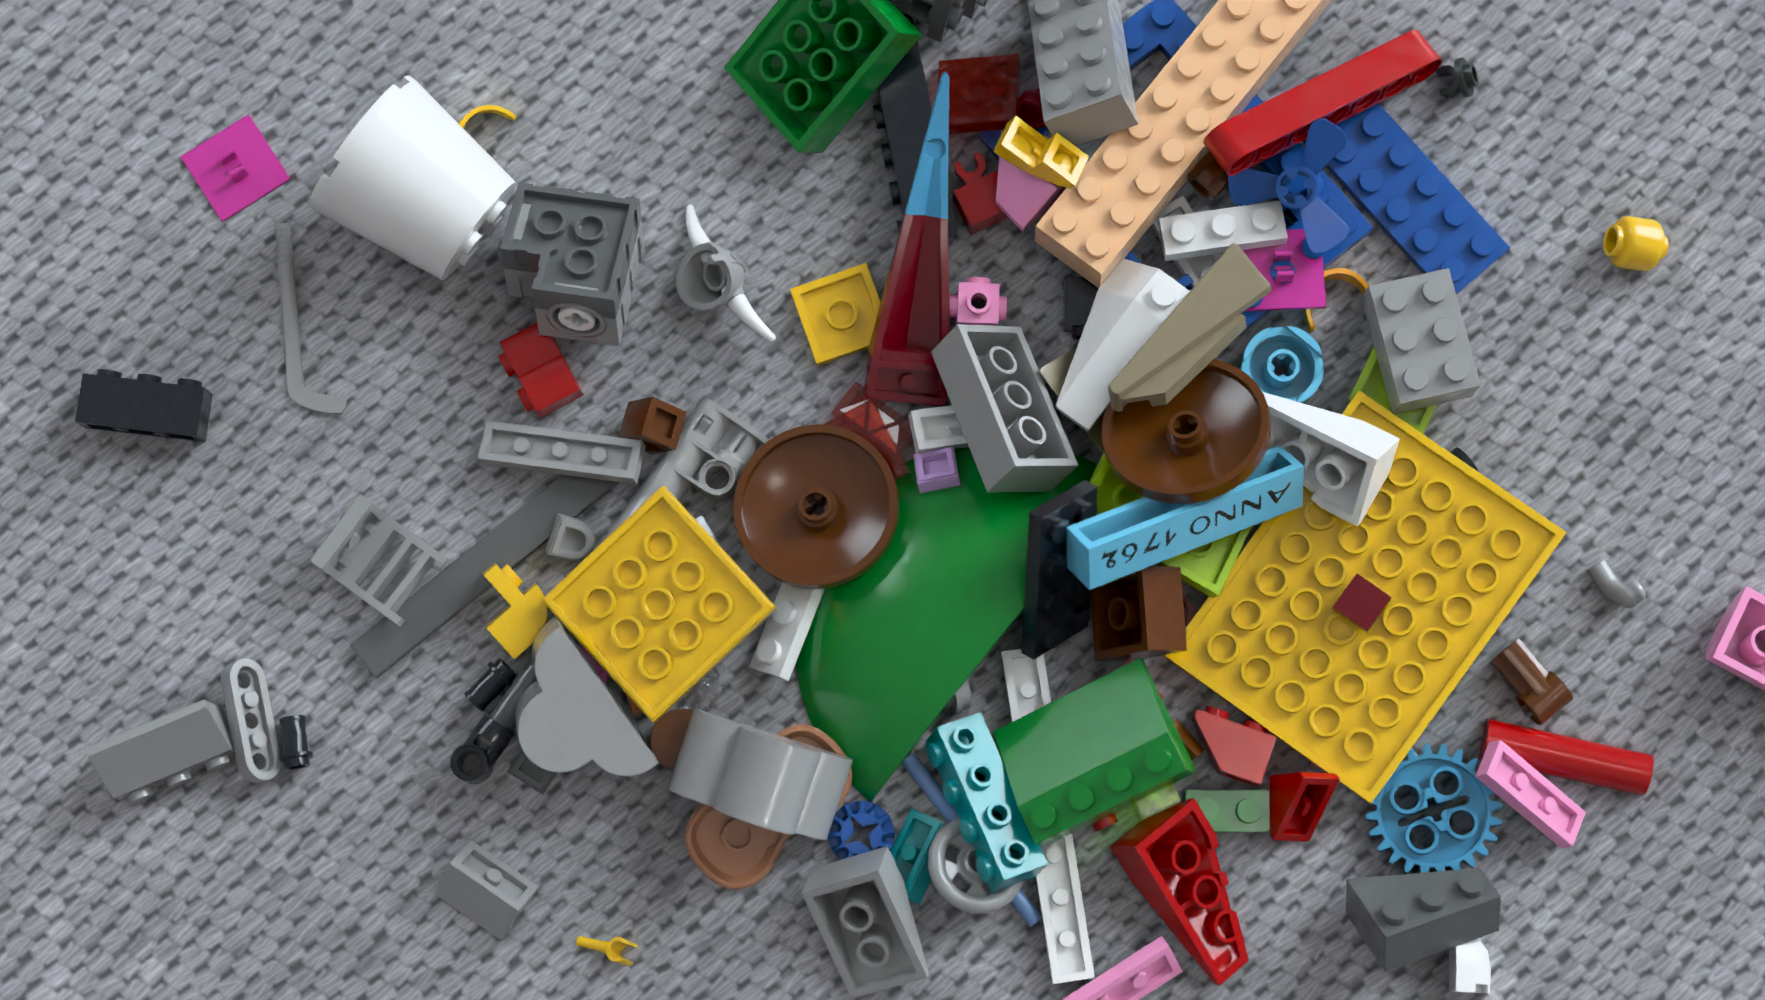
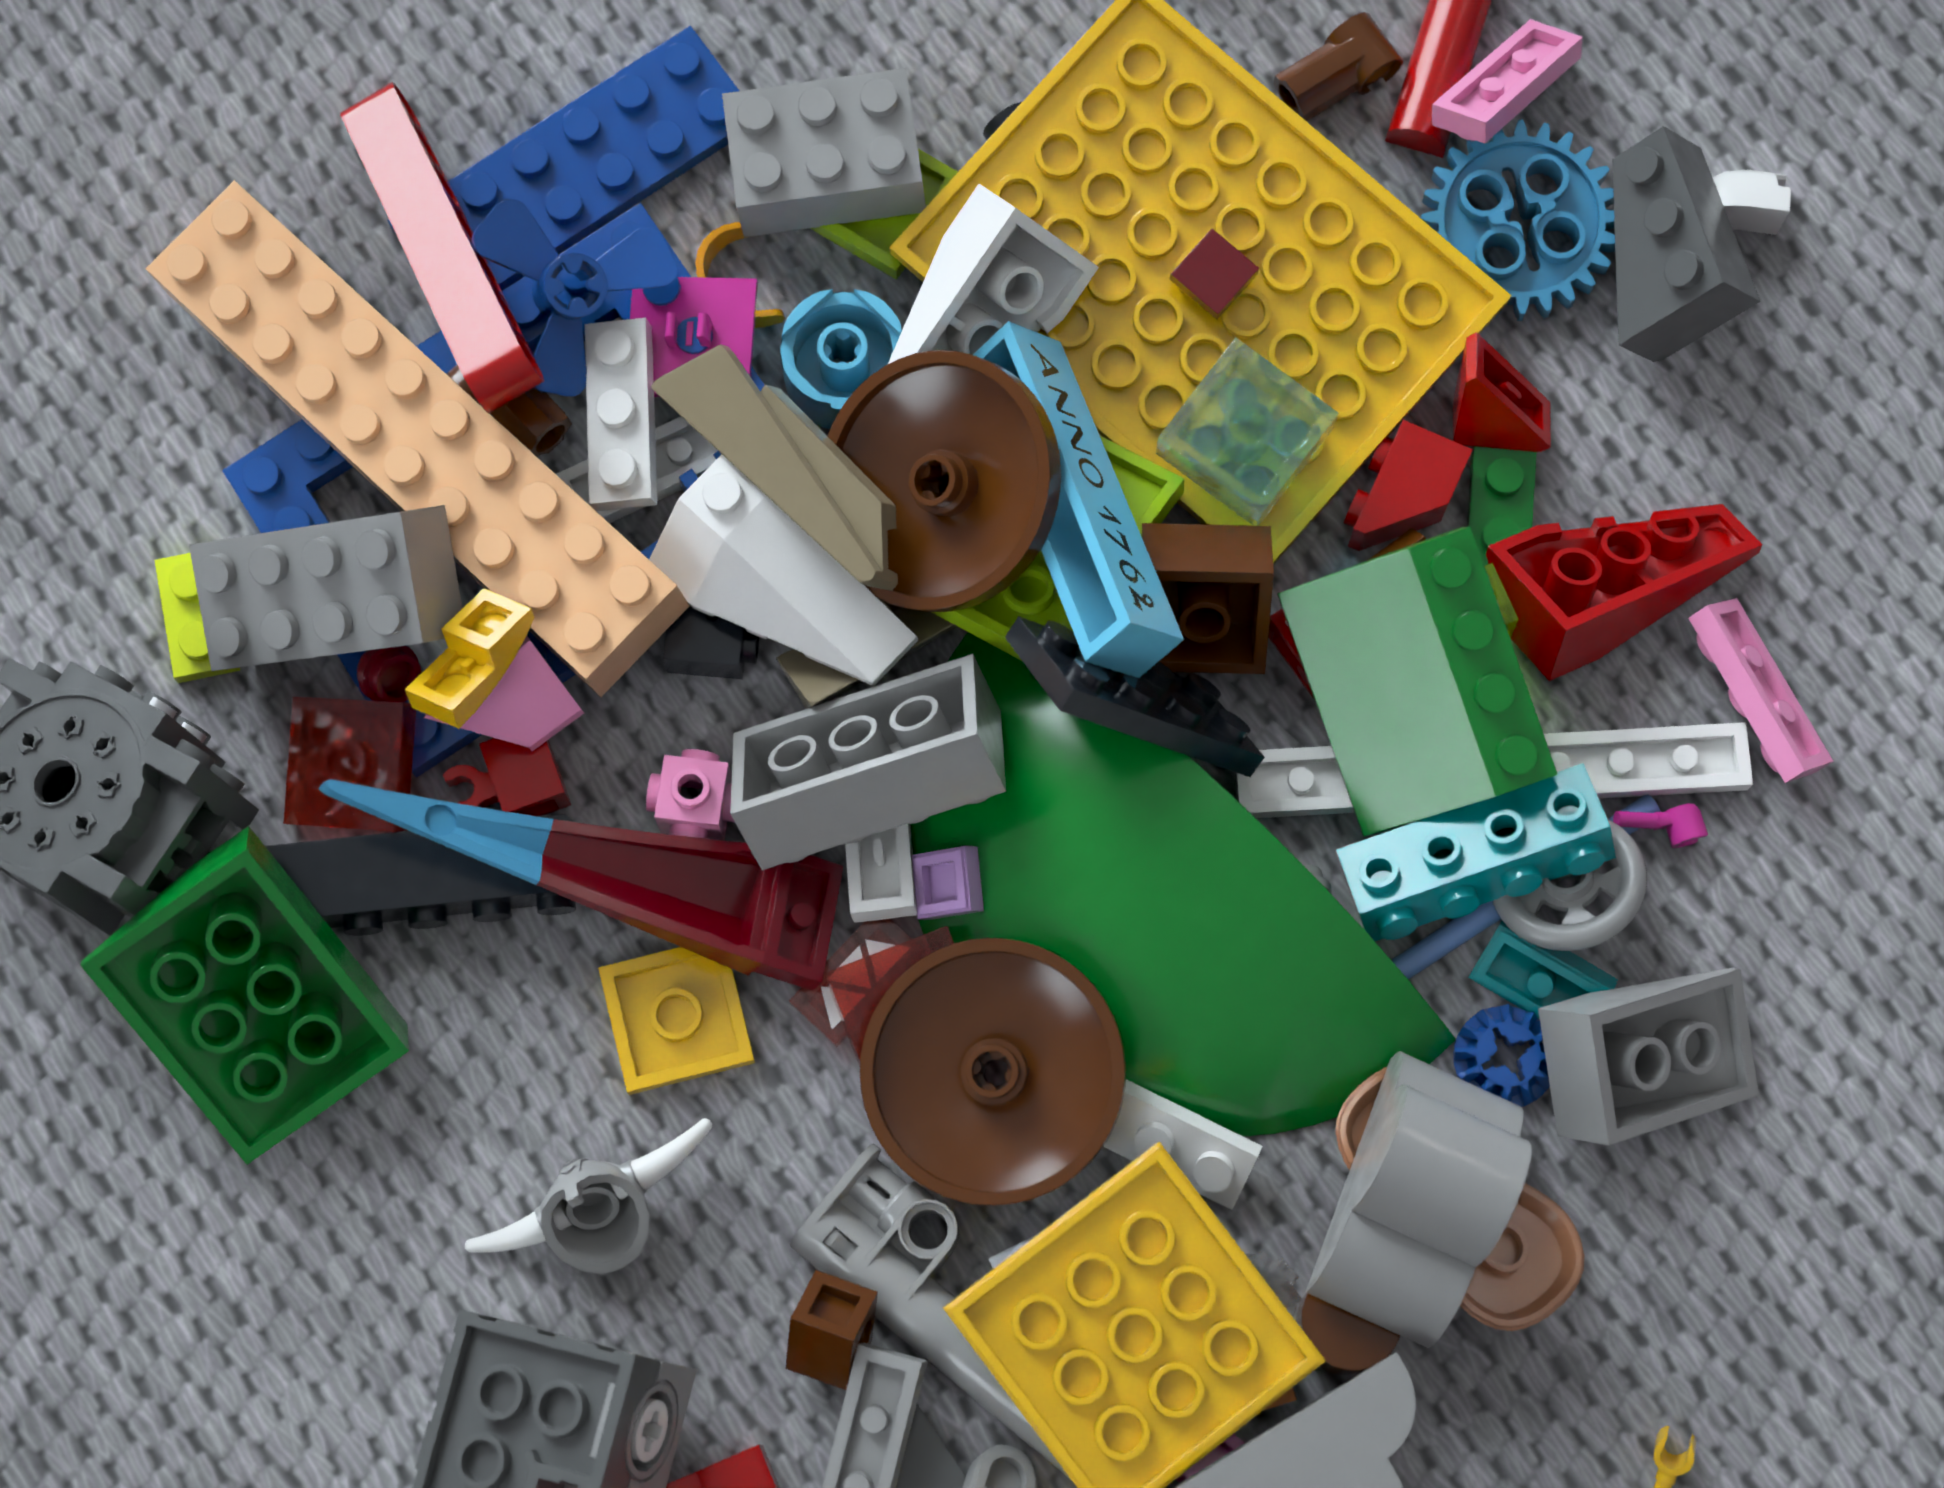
camera: 85 degrees left, 5 degrees down
(1022, 940) = (1682, 823): none -> dark pink hand
(1249, 630) = (1246, 432): none -> clear light blue brick
(1464, 78) = (423, 58): pearl dark grey plate -> none

